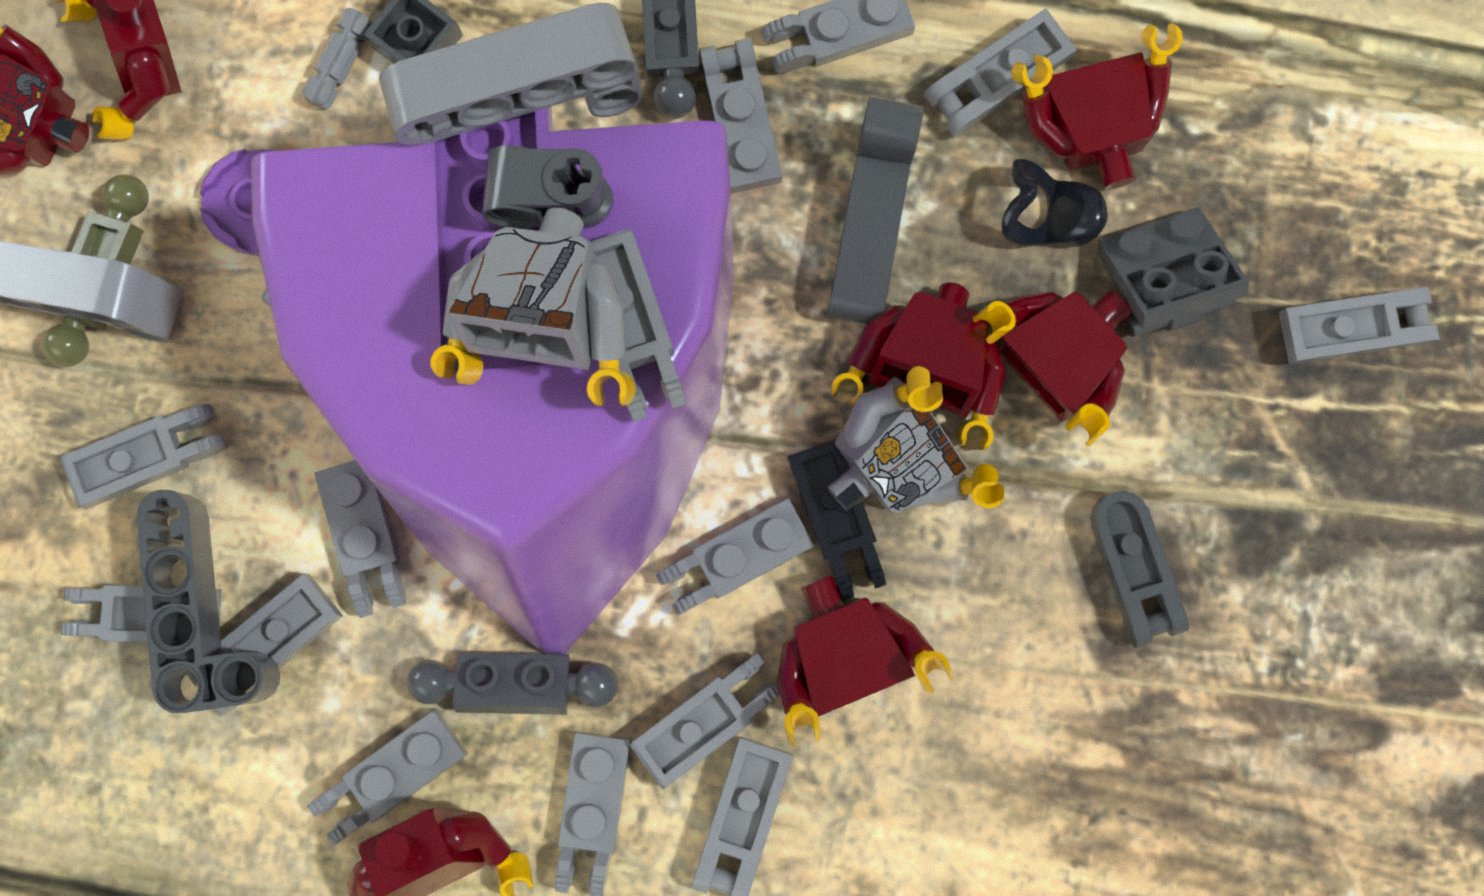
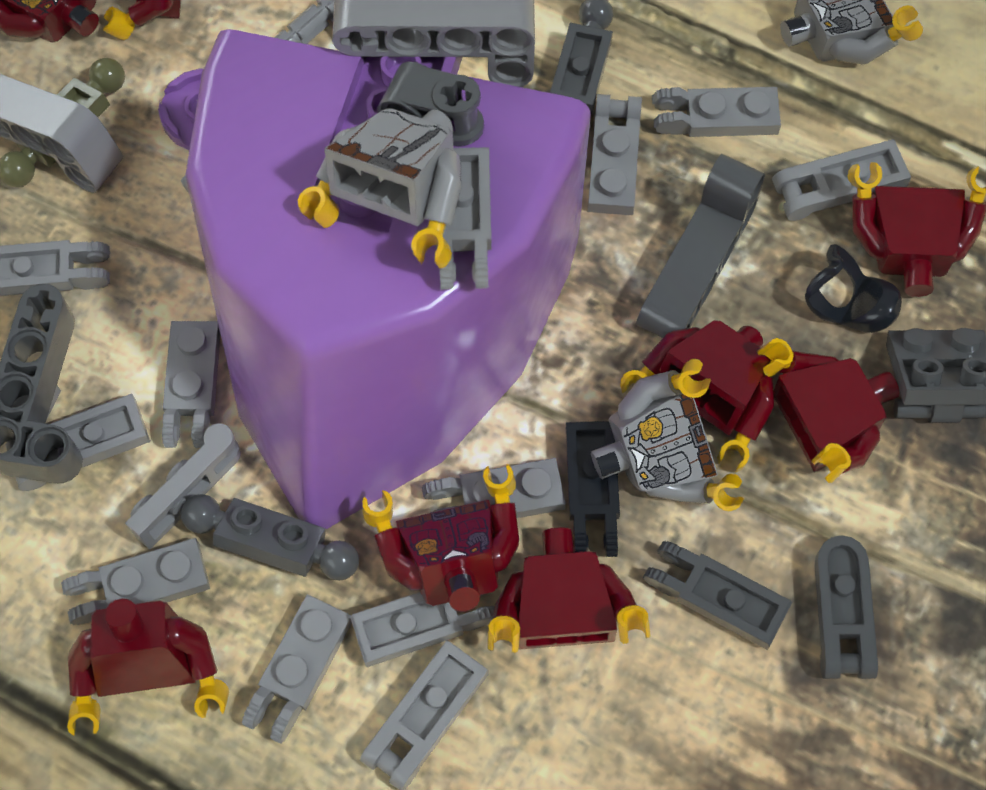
camera: 20 degrees right, 15 degrees down
(400, 652) = (159, 513): none -> light grey plate
(714, 644) = (451, 551): none -> dark red torso
(1009, 594) = (721, 594): none -> dark grey hinge

